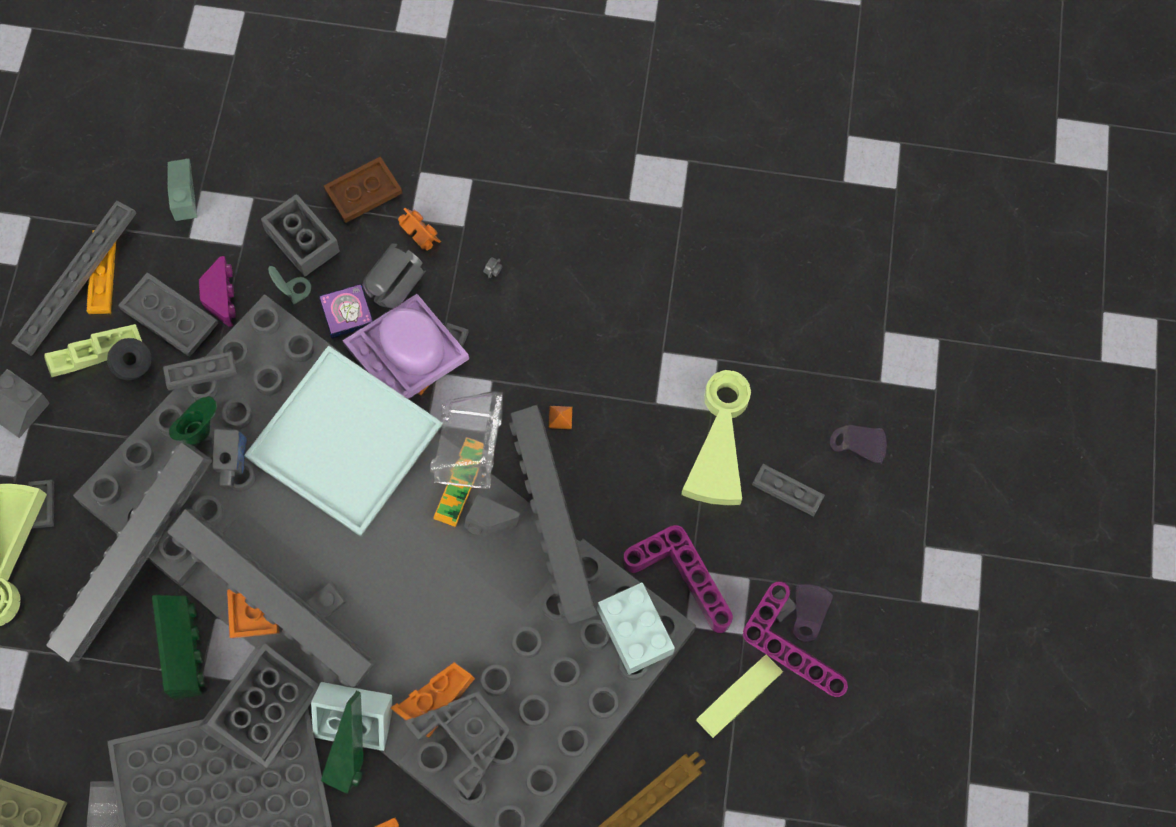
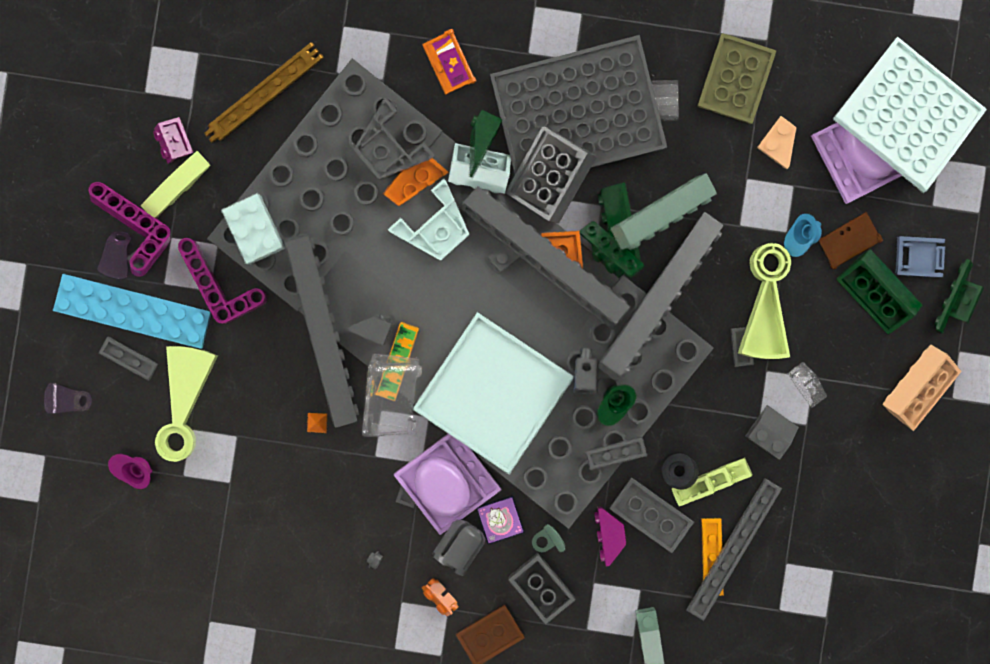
camera: 175 degrees left, 20 degrees up
(117, 656) = (663, 211): none -> sand green brick
(190, 608) = (609, 253): none -> dark green bracket
(401, 631) = (440, 232): none -> light aqua wing
(746, 754) = (172, 140): none -> bracket
(775, 361) = (133, 471): none -> magenta piece
(787, 544) = (132, 311): none -> medium azure plate

